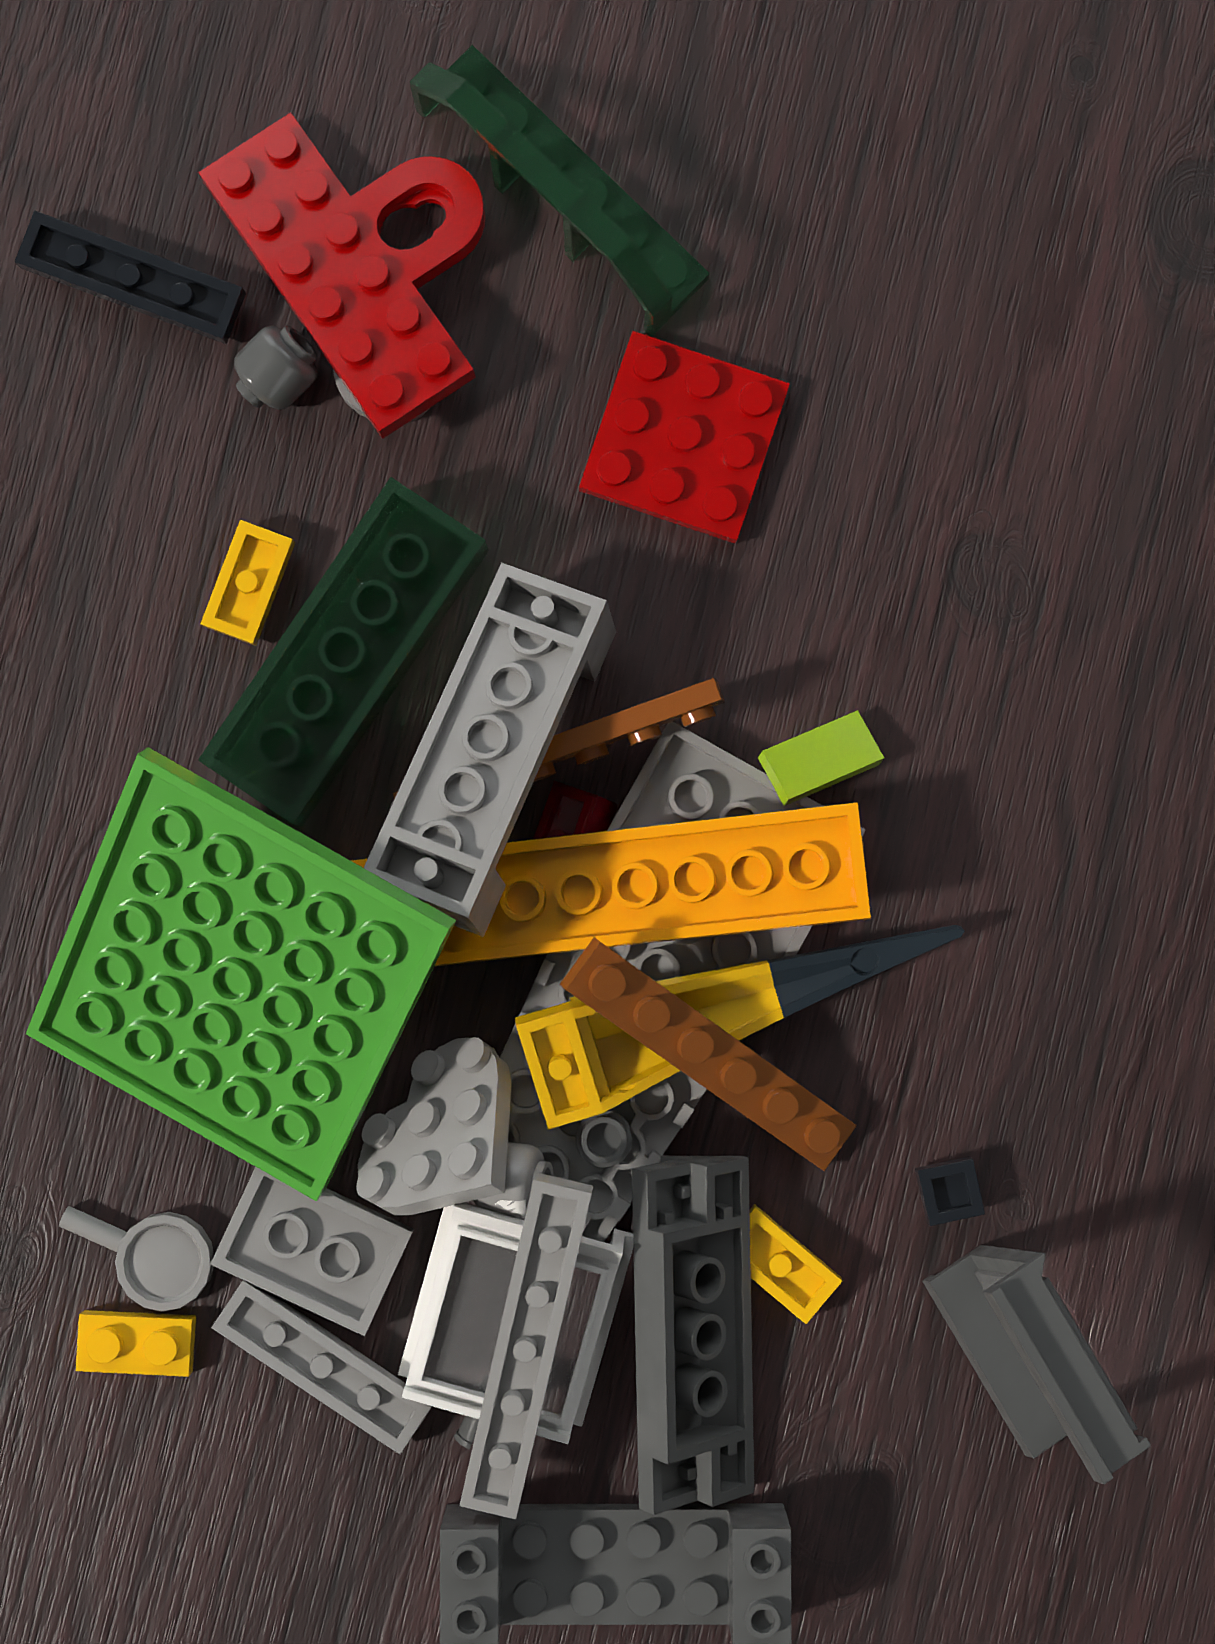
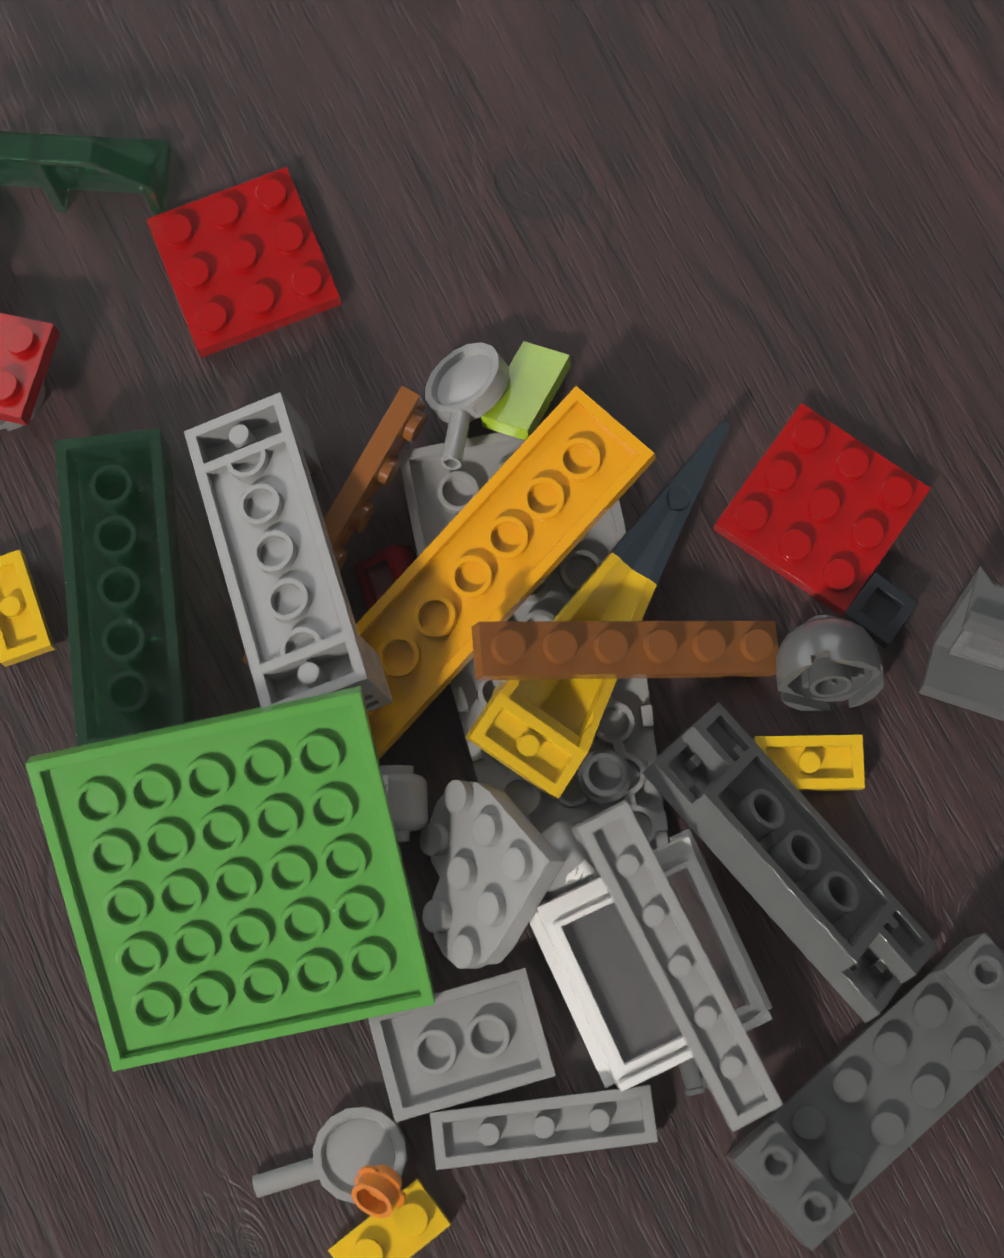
camera: 35 degrees left, 10 degrees down
(152, 1307) = (378, 1190): none -> orange plate
(431, 1017) = (407, 799): none -> light grey head
(770, 714) = (462, 390): none -> light grey piece
(866, 1198) = (828, 663): none -> dark grey cylinder
(979, 1064) = (821, 509): none -> red plate

